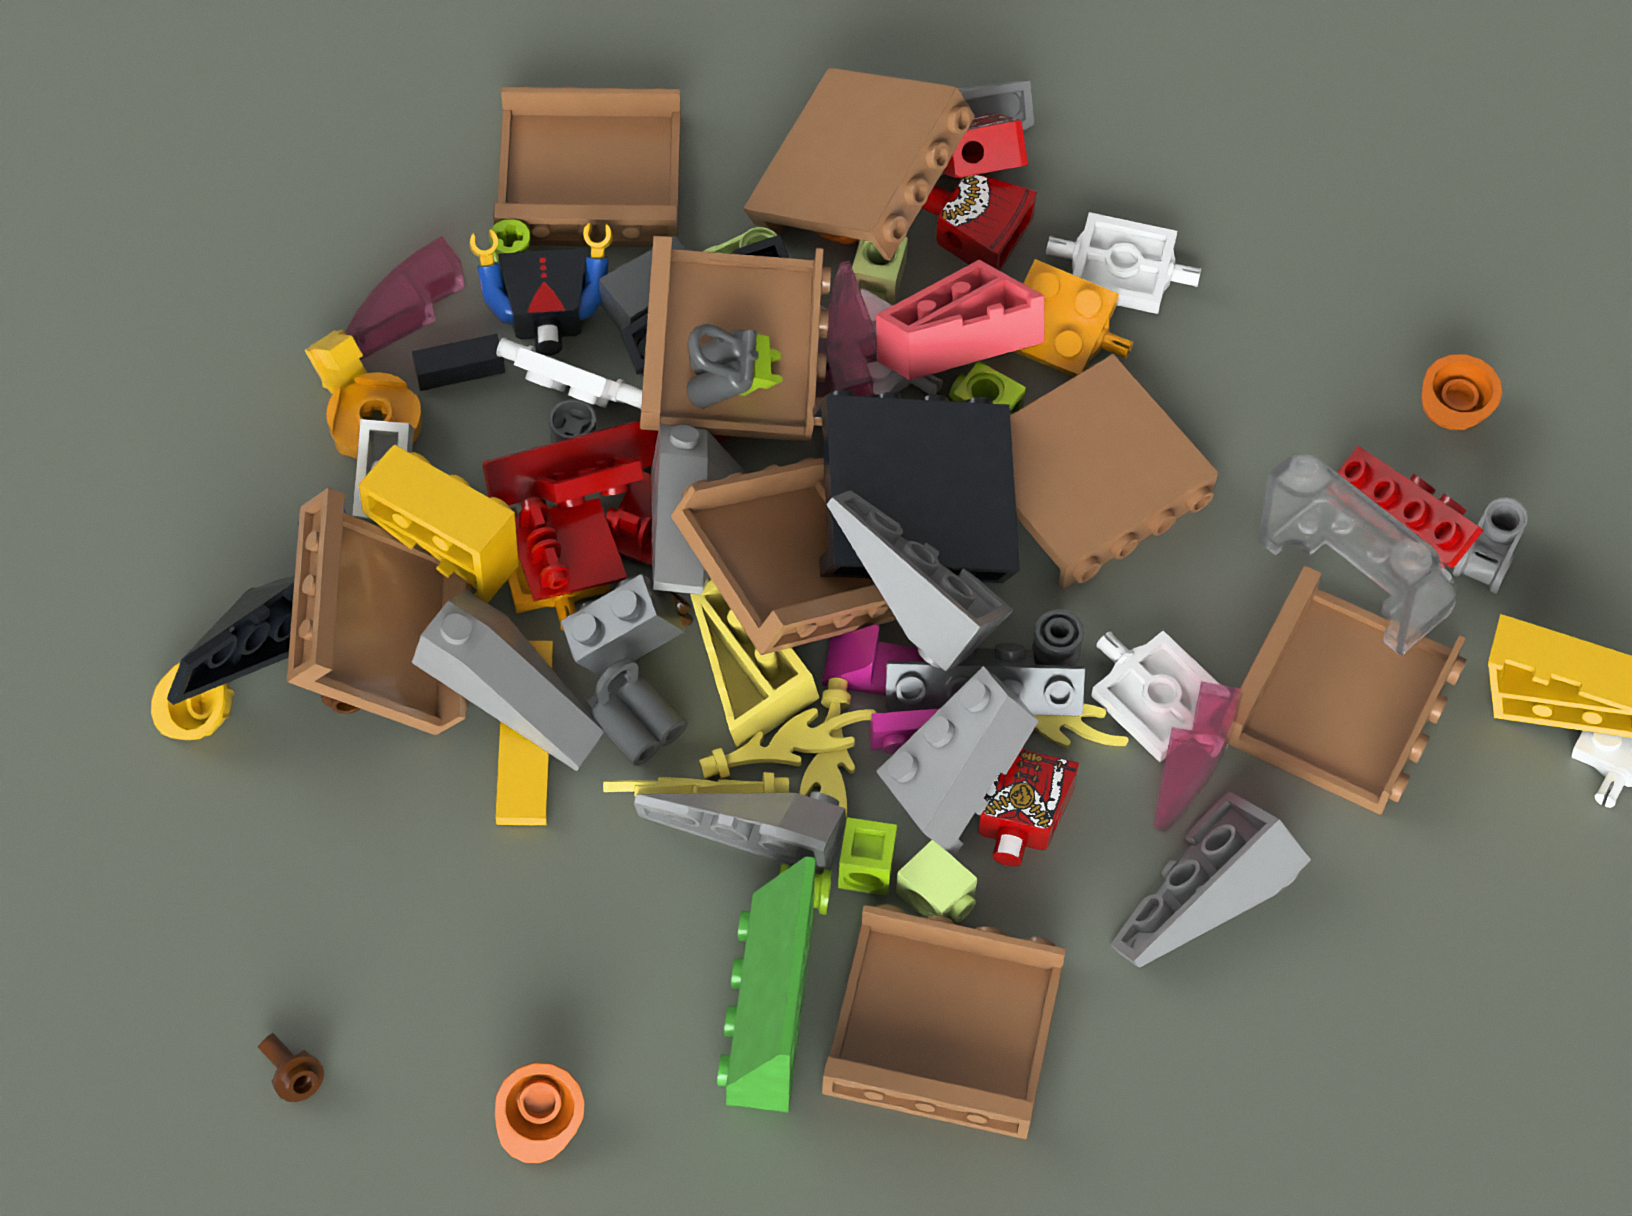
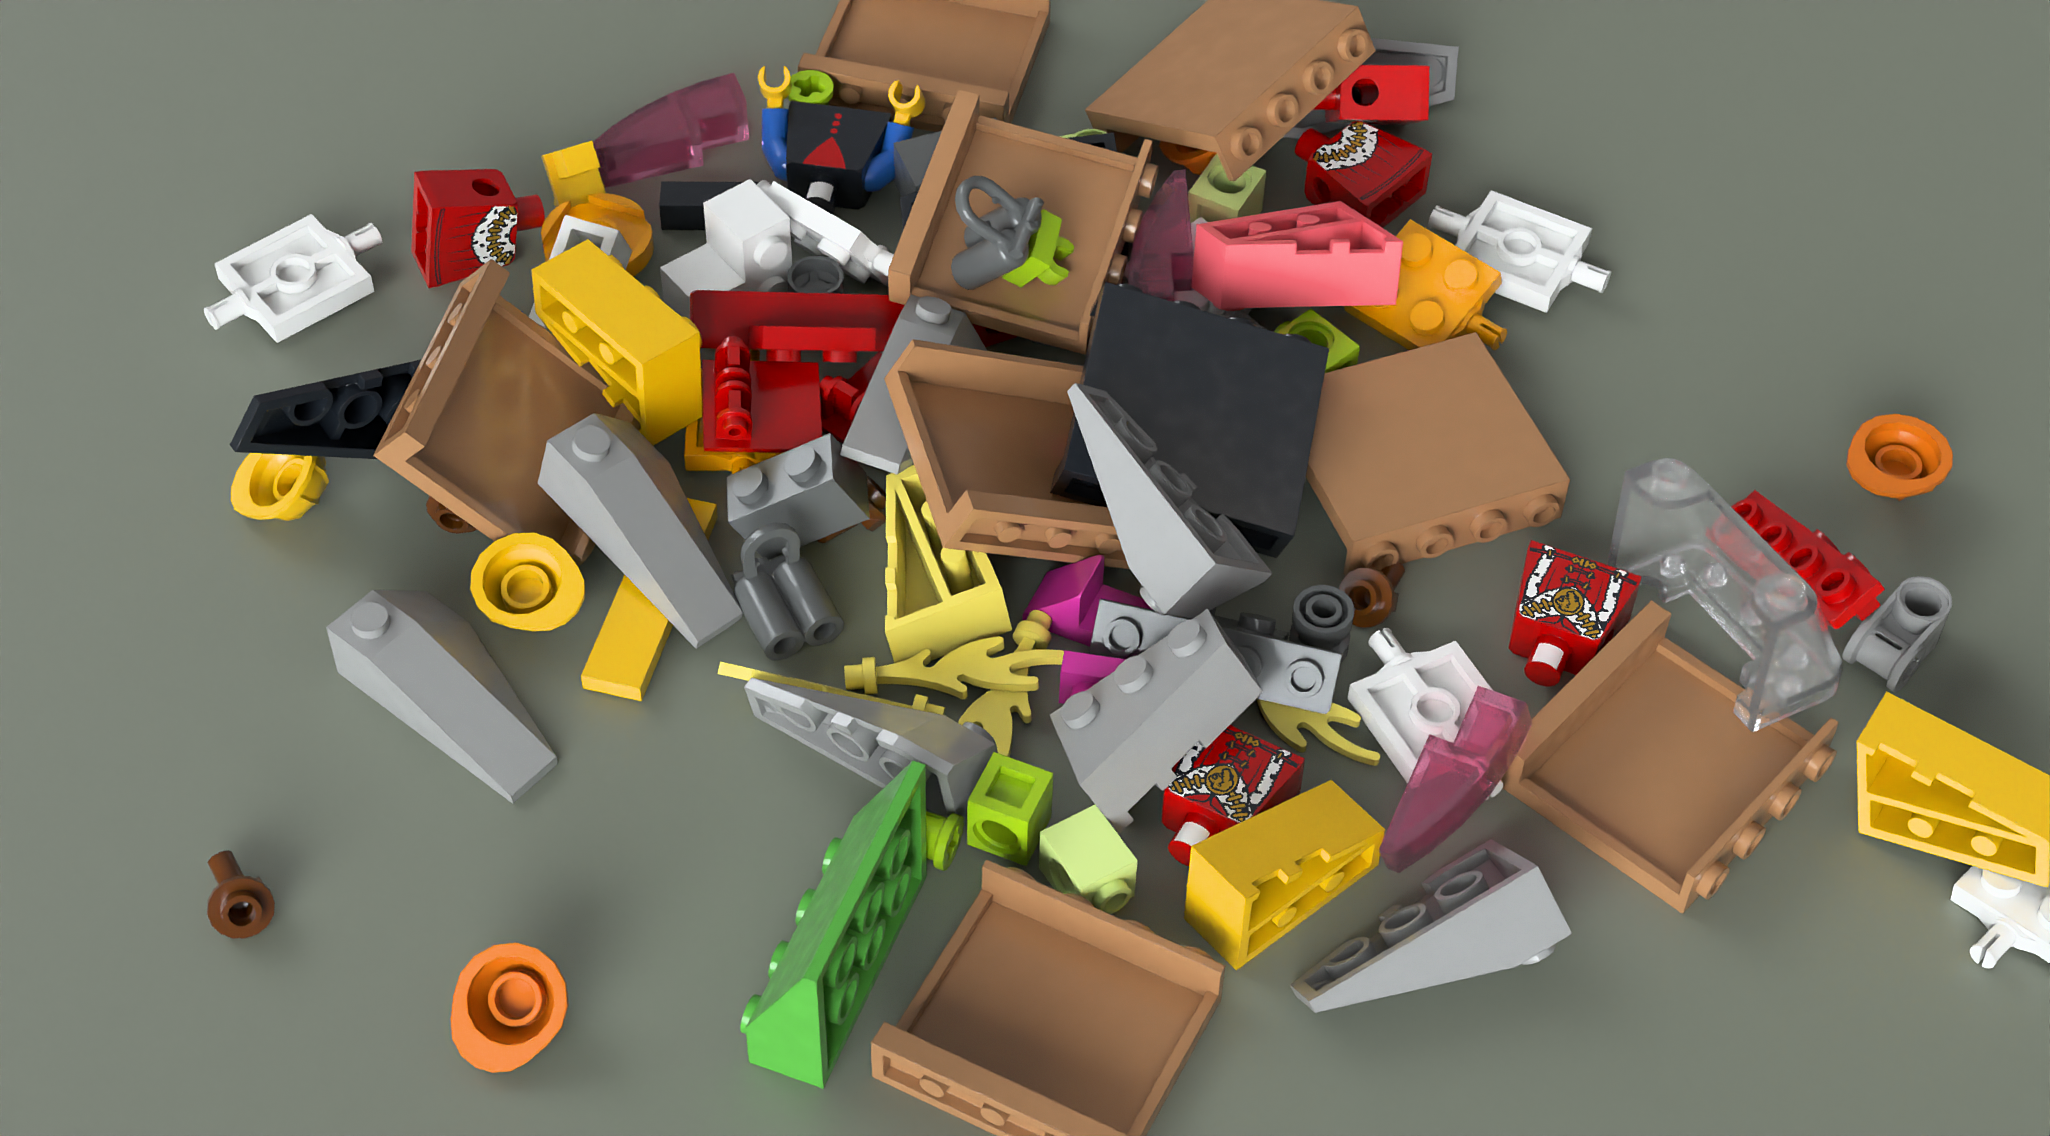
camera: 15 degrees right, 10 degrees down
(133, 509) = (294, 277): none -> white plate
(265, 429) = (467, 221): none -> red torso
(385, 847) = (441, 683): none -> light grey wedge
(430, 750) = (527, 583): none -> yellow piece
(505, 417) = (743, 251): none -> white brick
(1082, 857) = (1278, 870): none -> yellow wedge
(1087, 600) = (1373, 593): none -> reddish brown plate
(1239, 585) = (1567, 611): none -> torso

